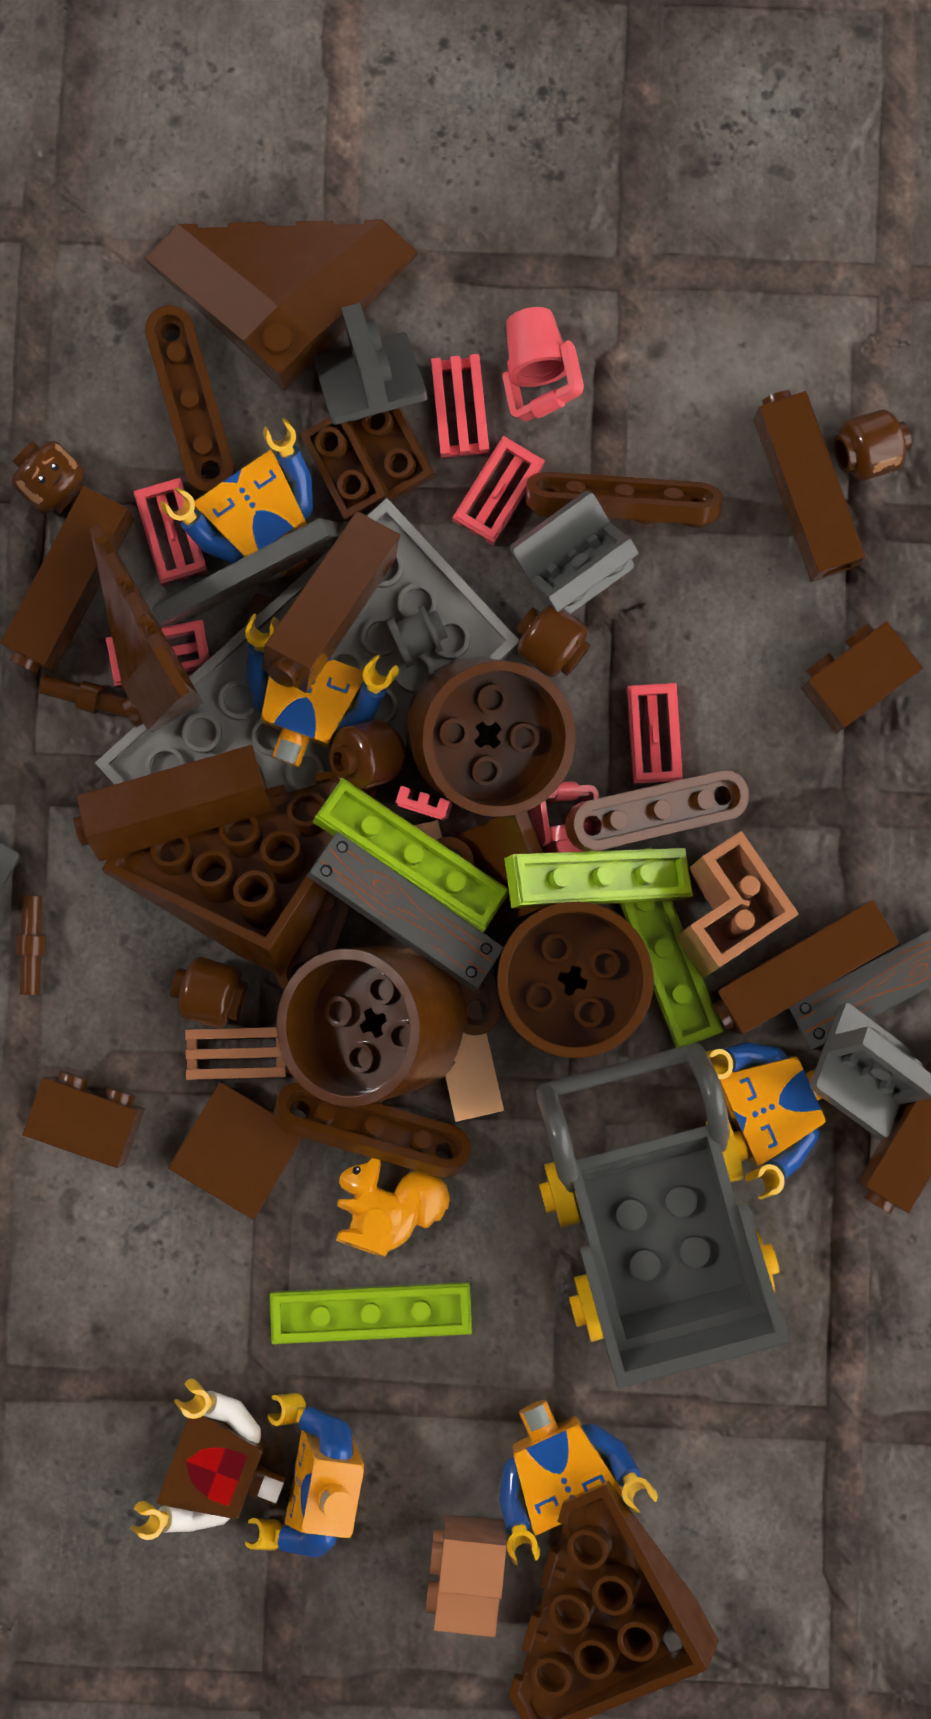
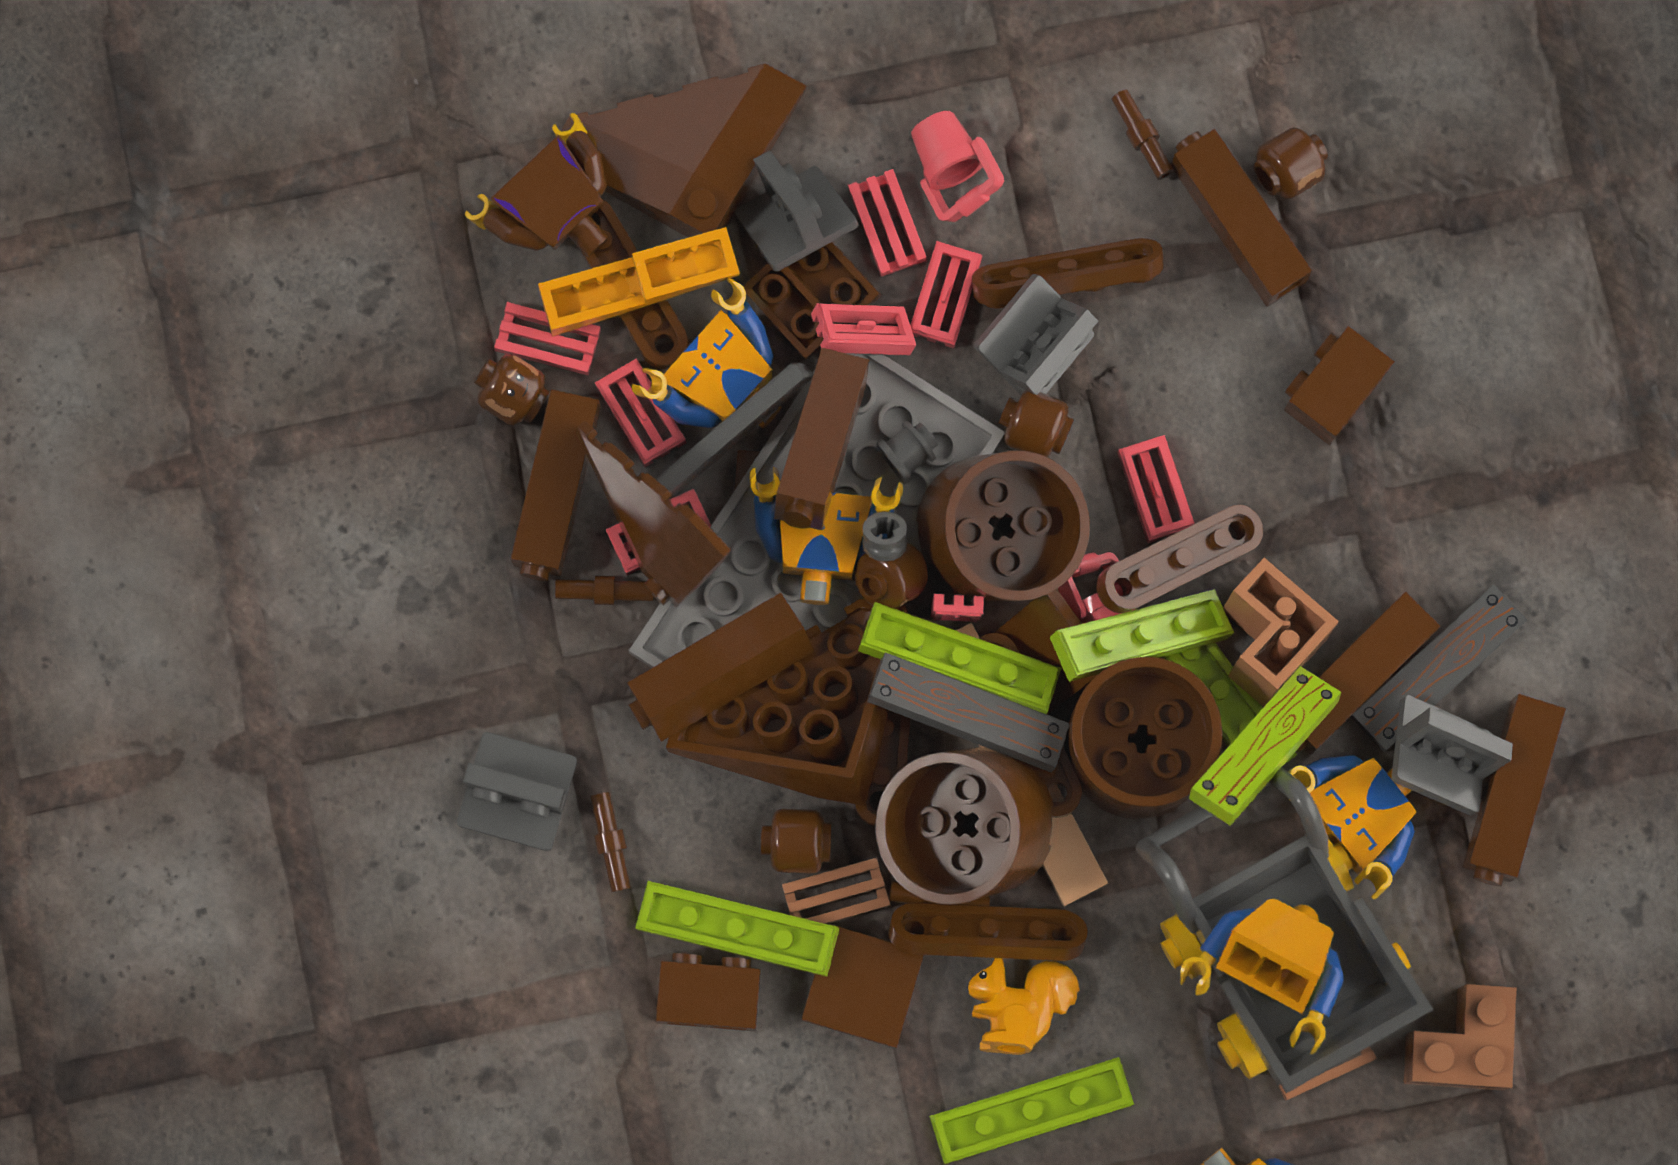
camera: 20 degrees left, 5 degrees down
(65, 417) = (536, 316): none -> coral tile
(130, 1062) = (737, 928): none -> lime tile
(133, 294) = (551, 197): none -> reddish brown torso
(195, 400) = (638, 281): none -> light orange slope
(370, 702) = (889, 524): none -> dark grey bush
(407, 511) = (866, 335): none -> coral tile
(648, 1244) = (1279, 954): none -> light orange torso
(690, 1023) = (1264, 745): none -> lime tile
(733, 381) = (1142, 134): none -> reddish brown bar
(822, 1373) = (1479, 1051): none -> nougat brick

